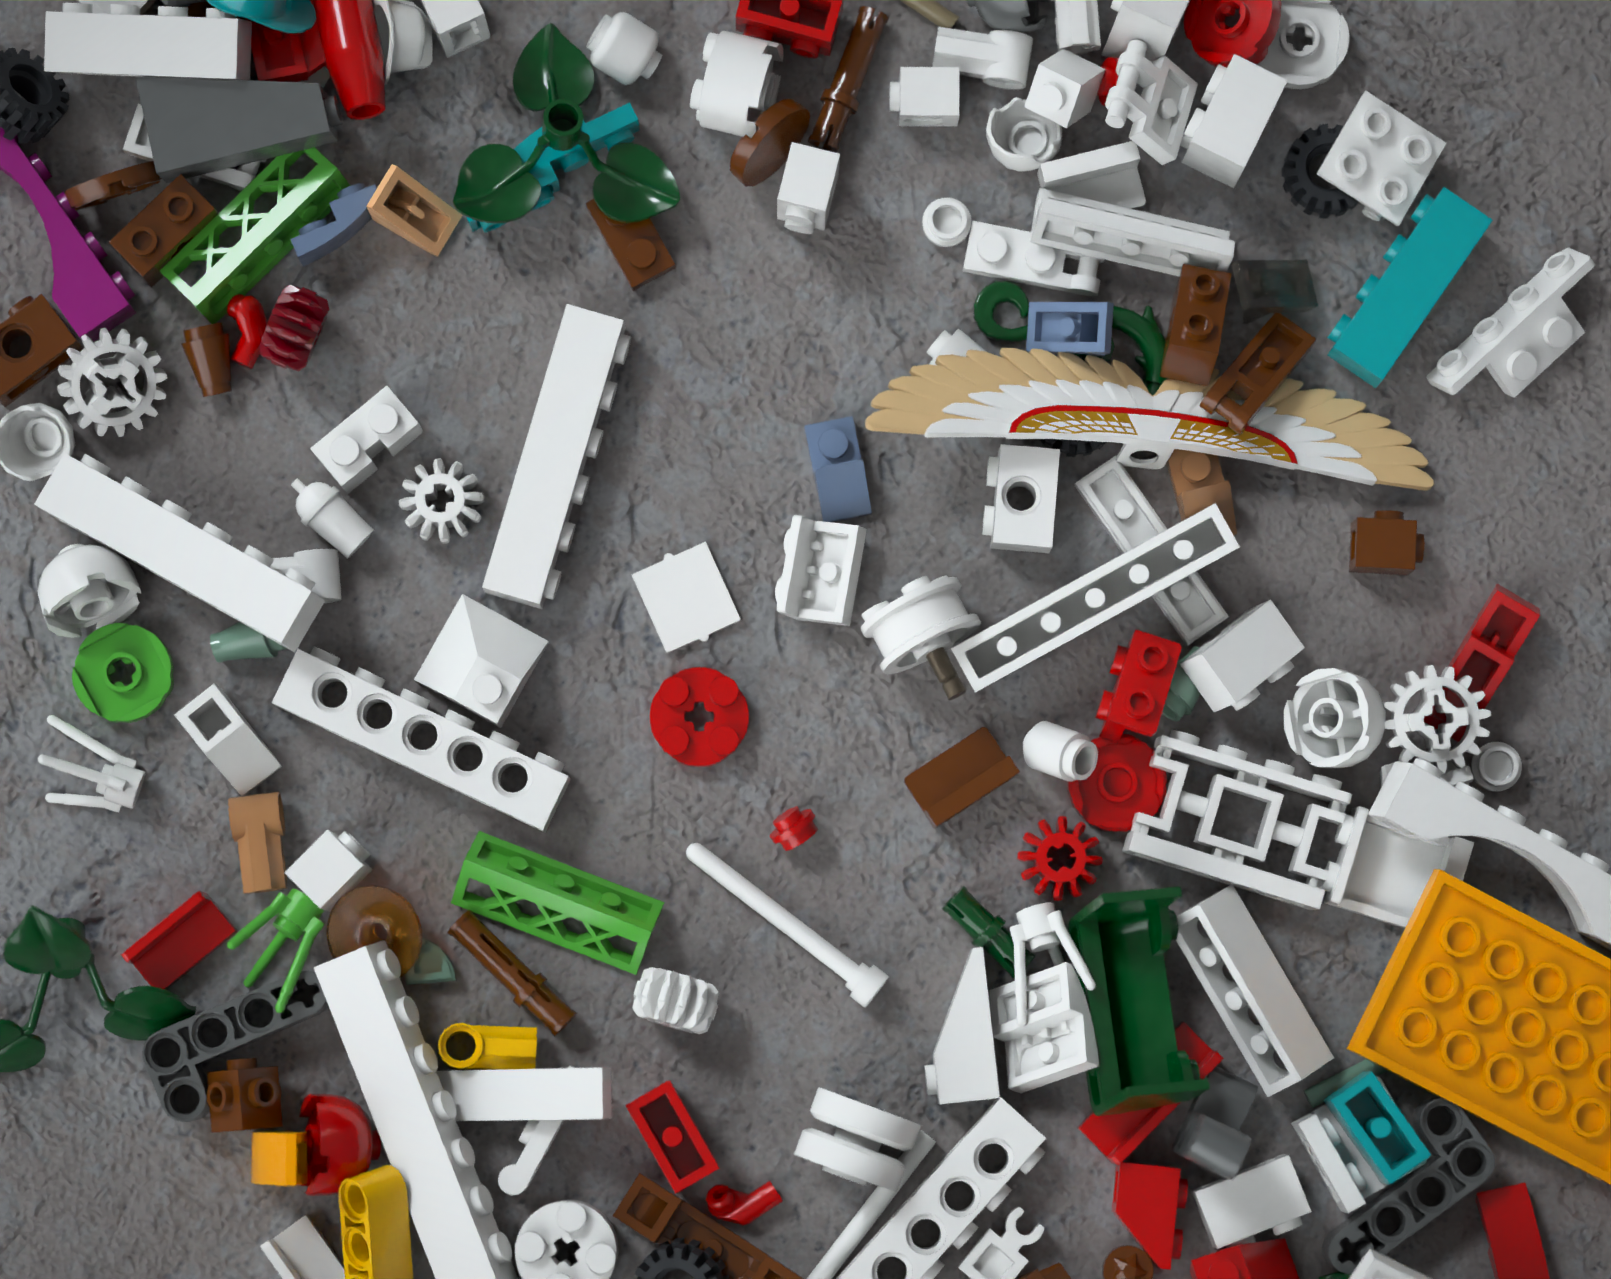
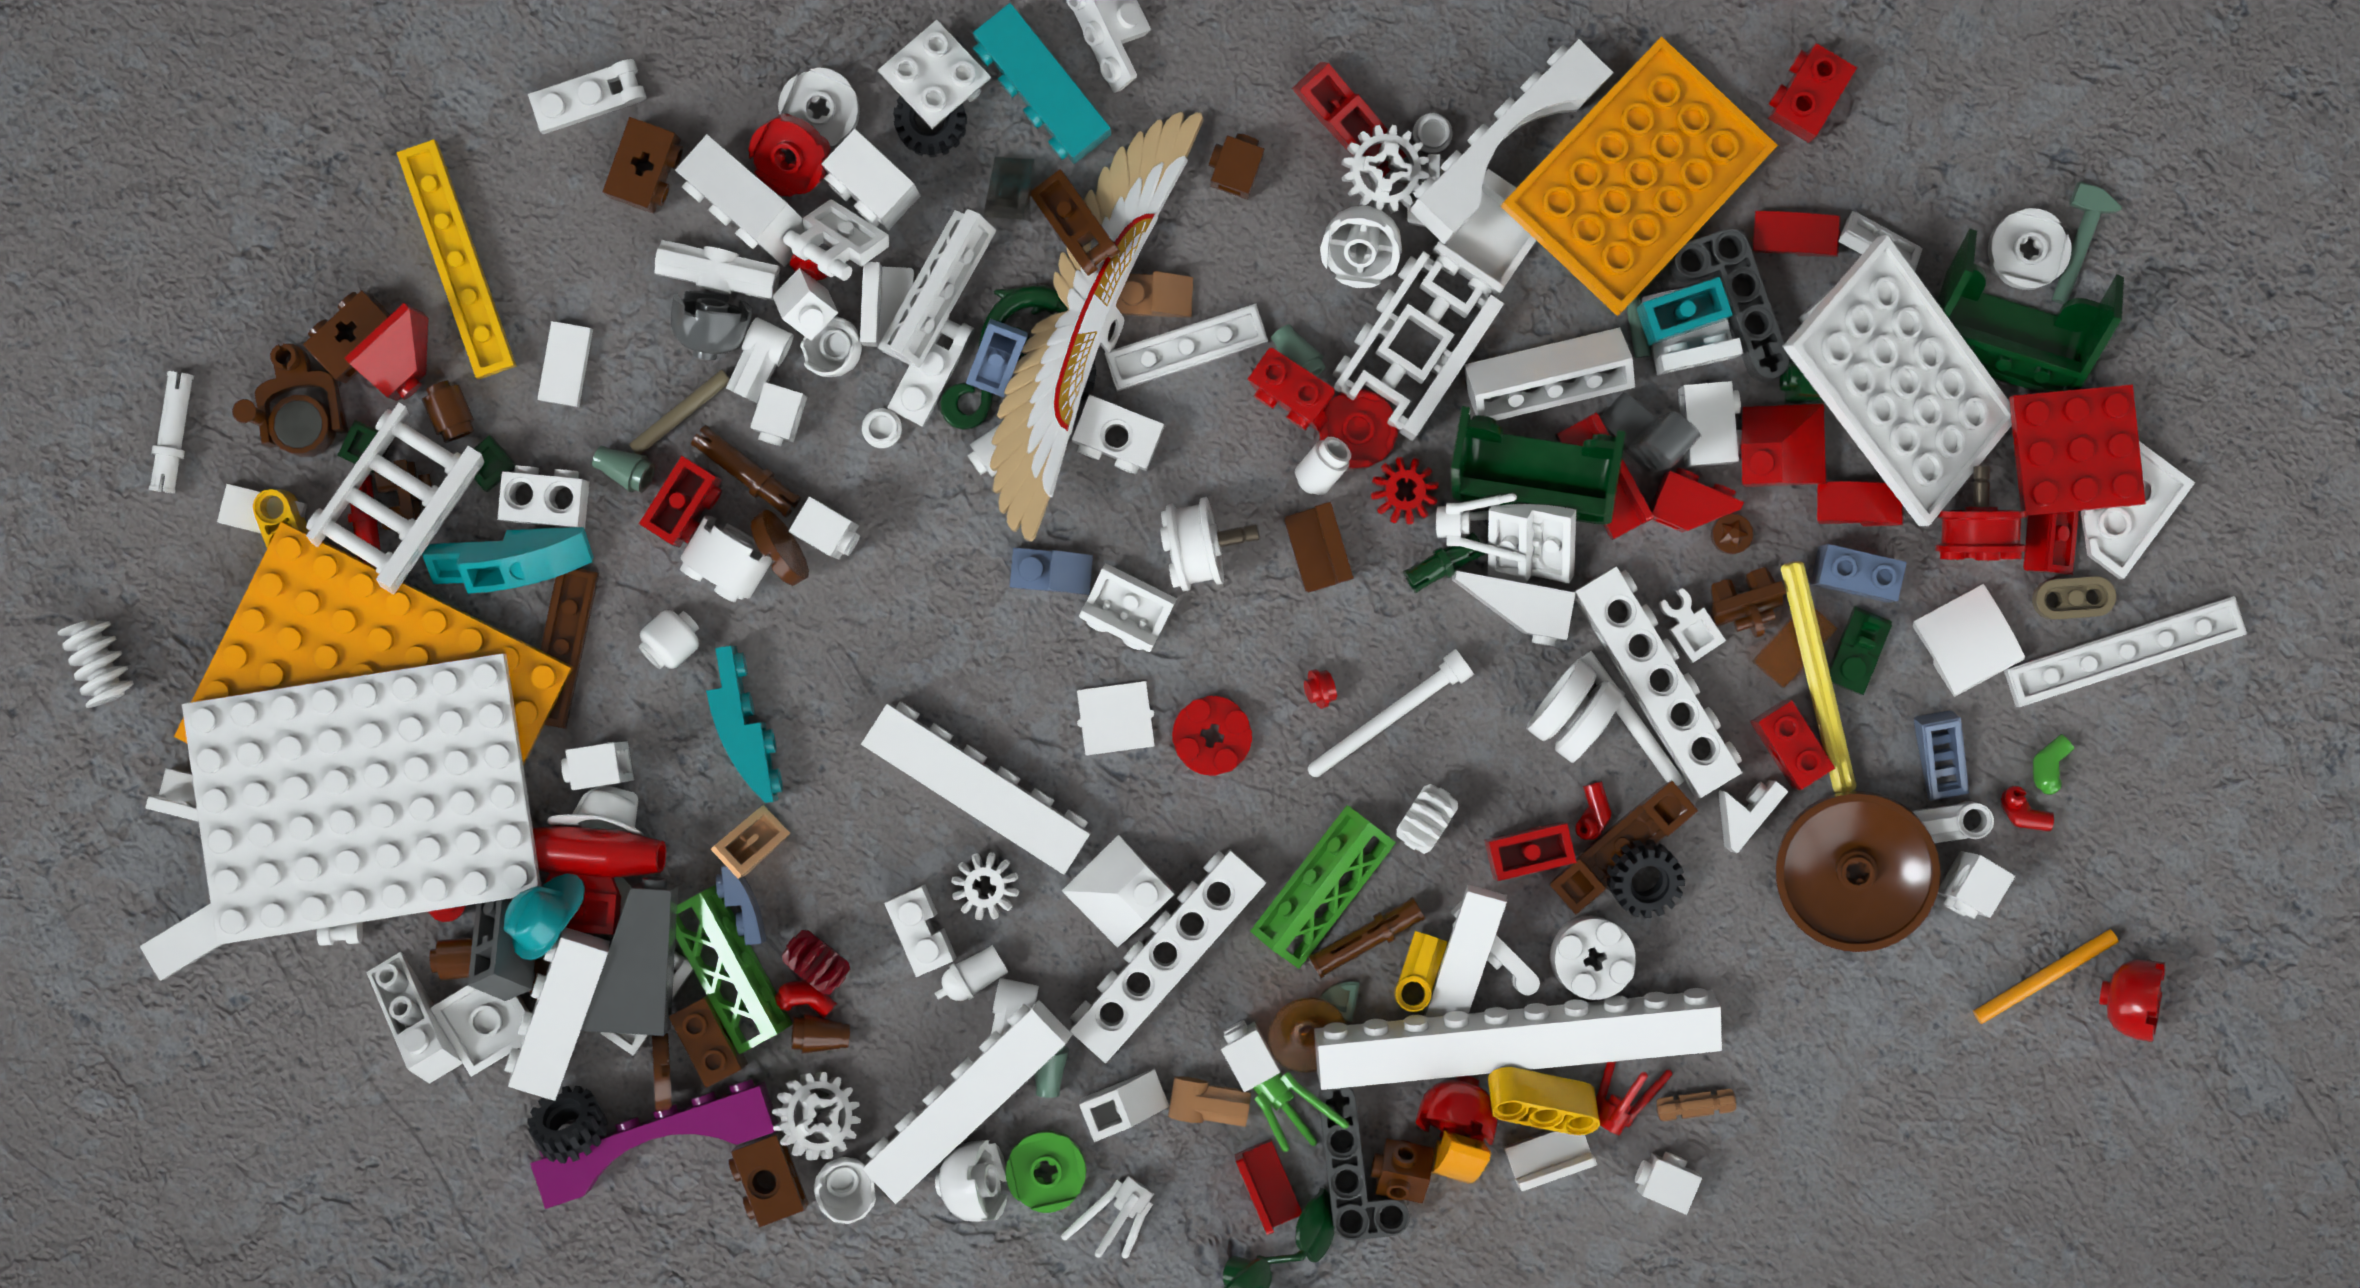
camera: 70 degrees left, 5 degrees up
(559, 79) = (677, 695): dark green plant -> none
(634, 246) = (818, 678): reddish brown plate -> none
(1095, 597) = (1213, 403): white brick -> none
(1195, 325) = (1023, 259): reddish brown brick -> none
(1242, 657) = (1292, 302): white brick -> none

